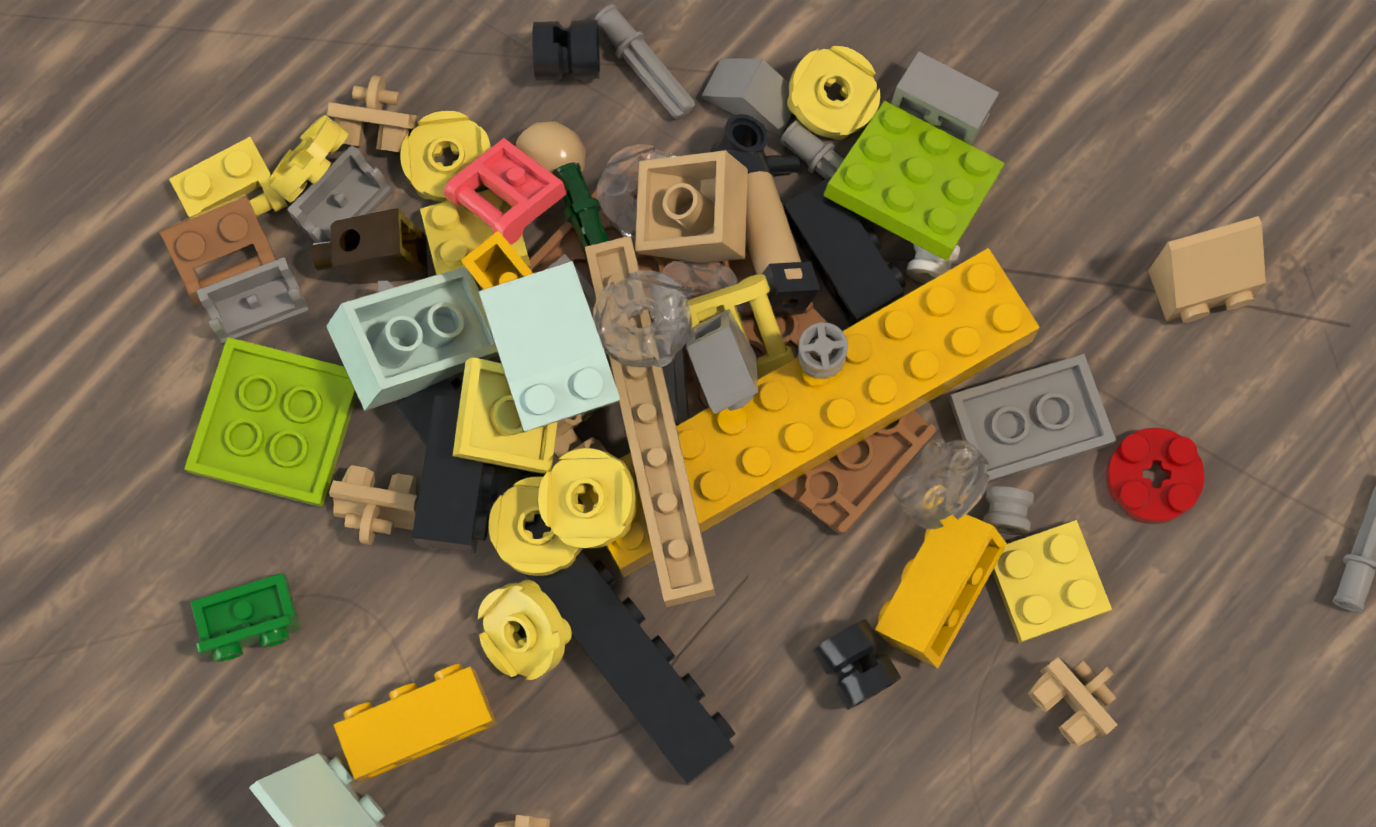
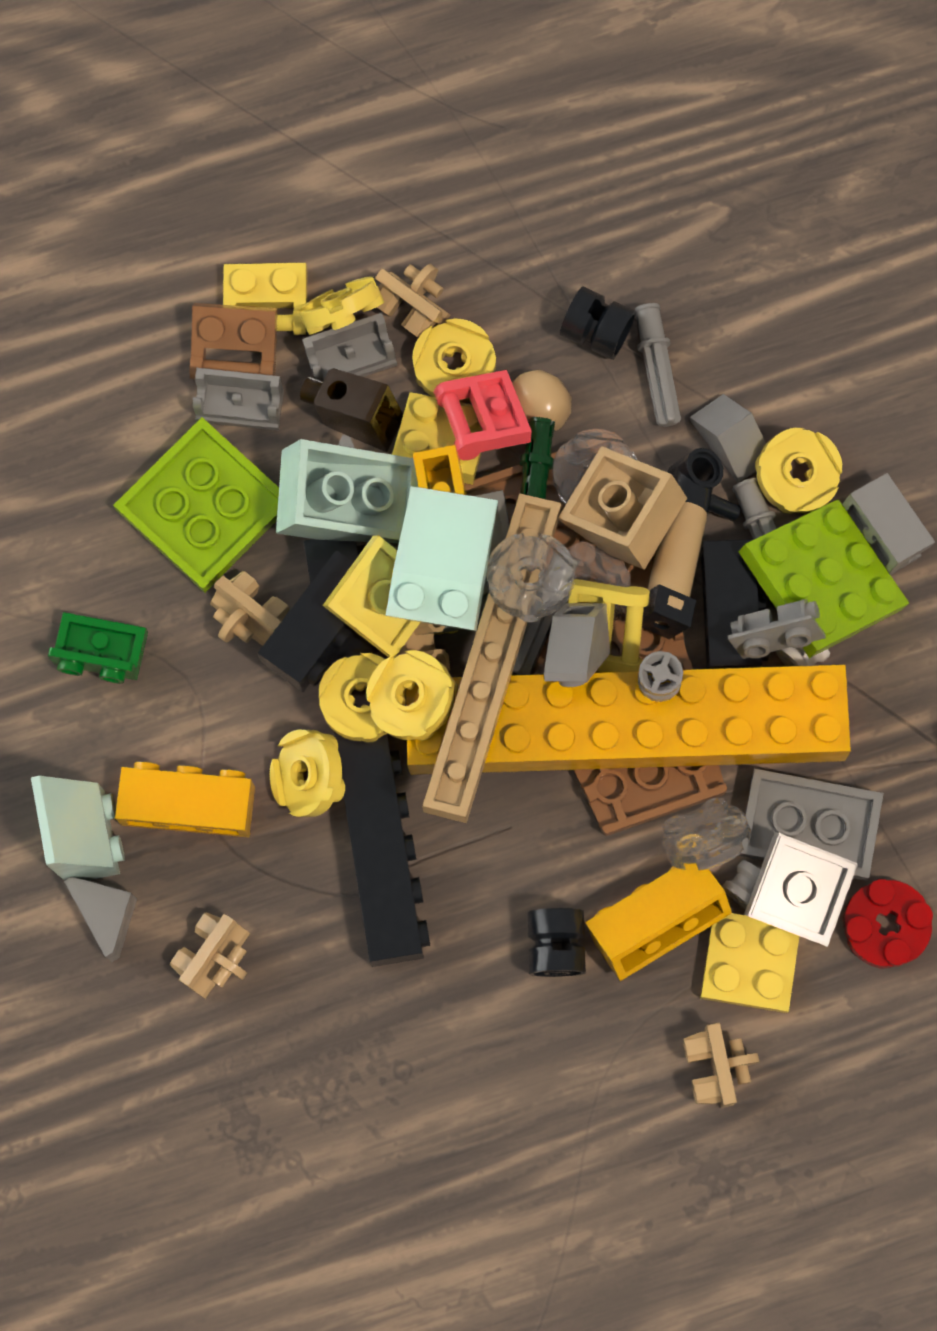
camera: 30 degrees right, 0 degrees up
(922, 237) = (757, 635): none -> light grey hinge
(1061, 485) = (801, 888): none -> tile

